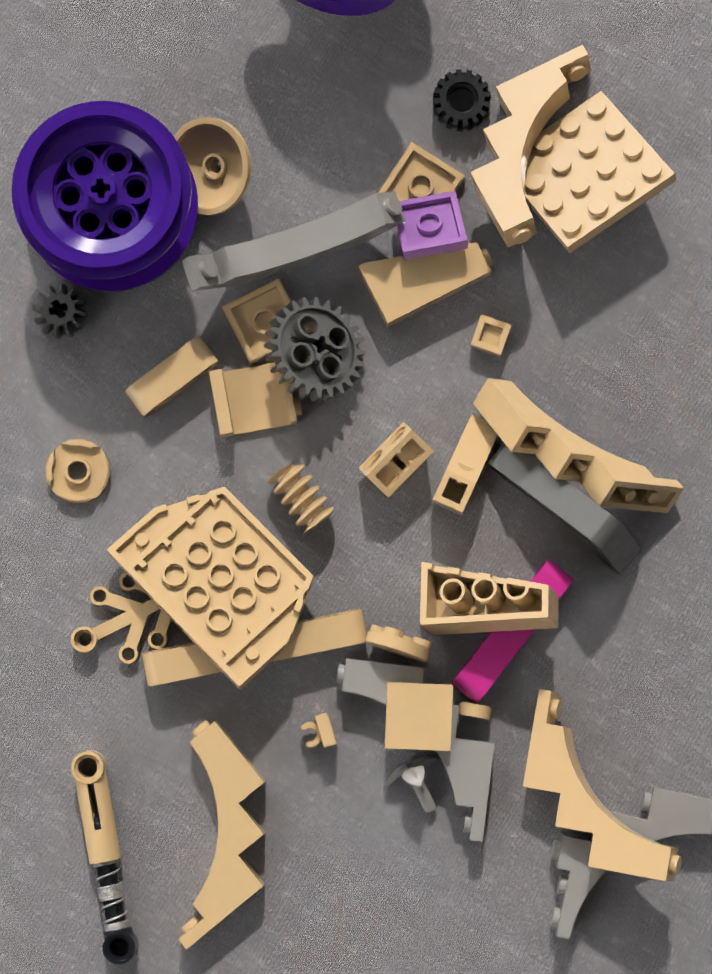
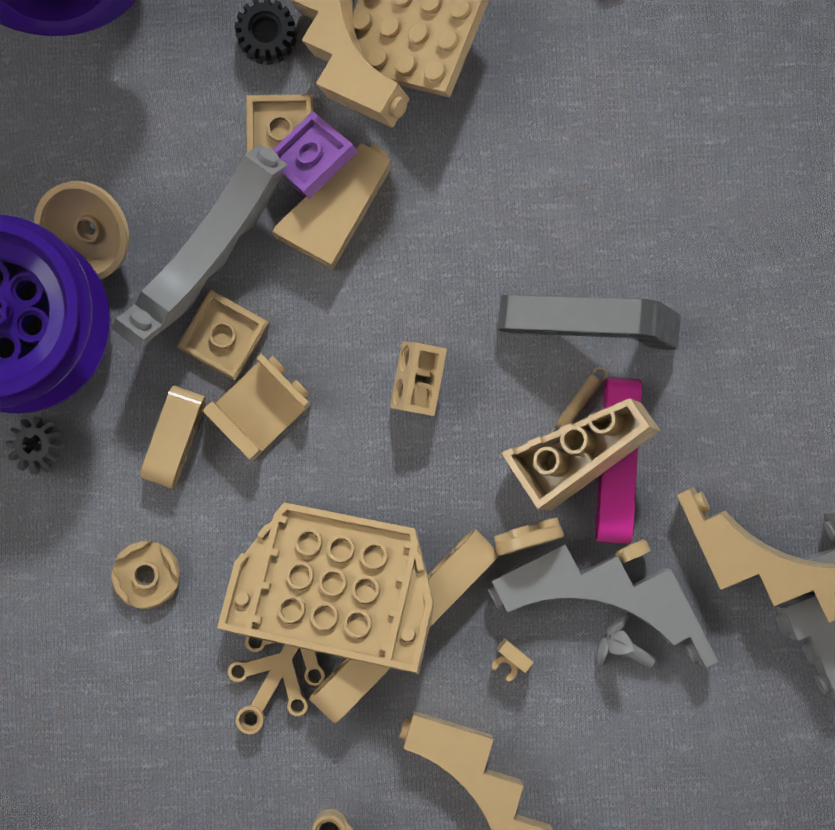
camera: 40 degrees left, 0 degrees up
(300, 496) = (357, 466): tan piece -> none
(314, 349) = (282, 330): dark grey gear -> none
(418, 716) = (590, 590): tan tile -> none
(465, 465) = (482, 343): tan slope -> none
(490, 335) = (427, 217): tan plate -> none
(515, 563) = (580, 400): none -> tan piece
(568, 457) = (566, 275): tan arch -> none

